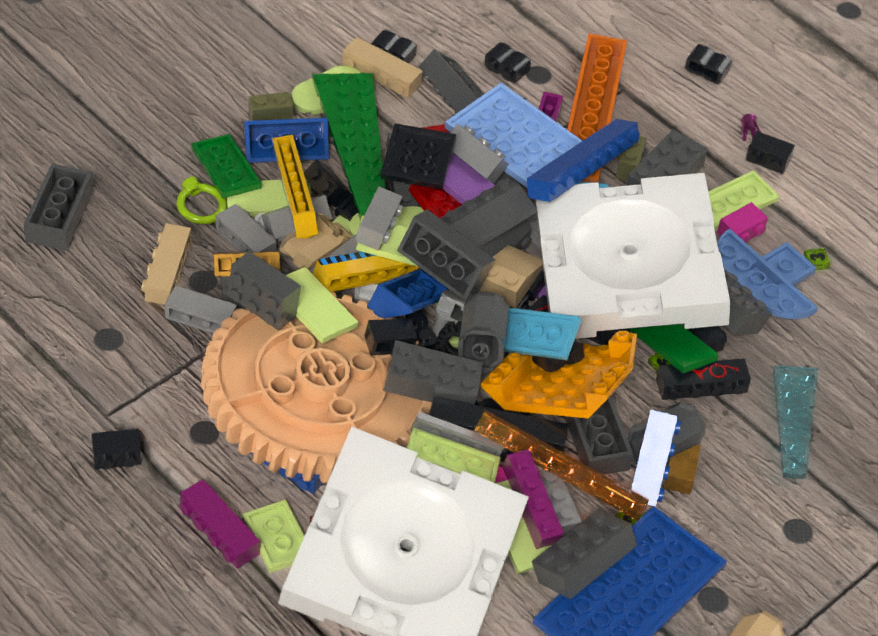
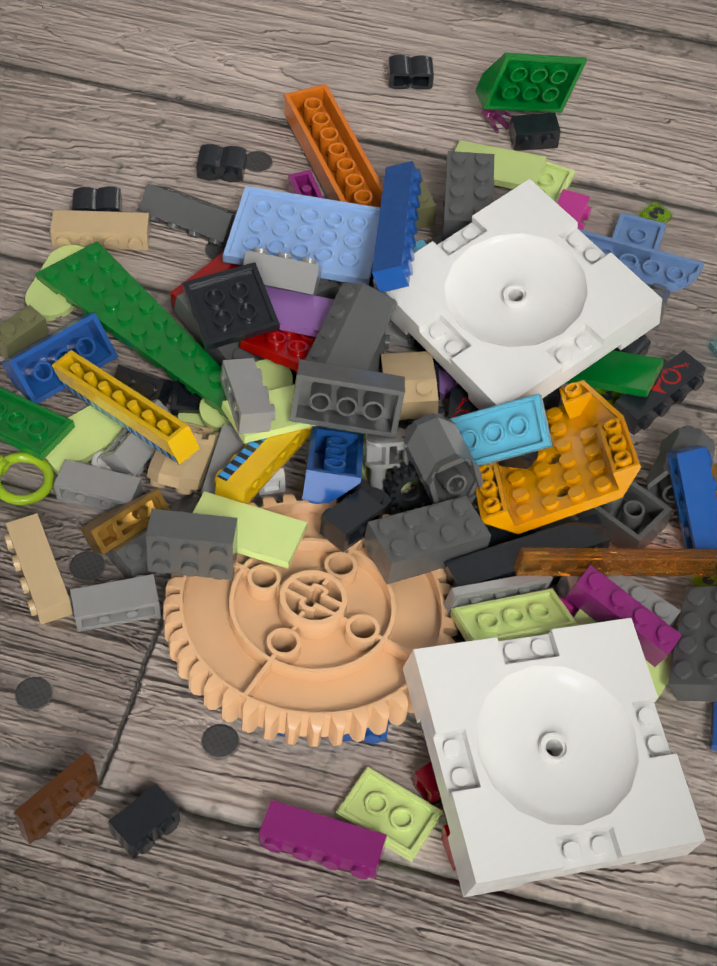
camera: 30 degrees left, 5 degrees up
(71, 402) = (57, 798): none -> reddish brown plate
(725, 167) = (510, 166): none -> yellowish green tile
(786, 112) = (529, 82): none -> green slope

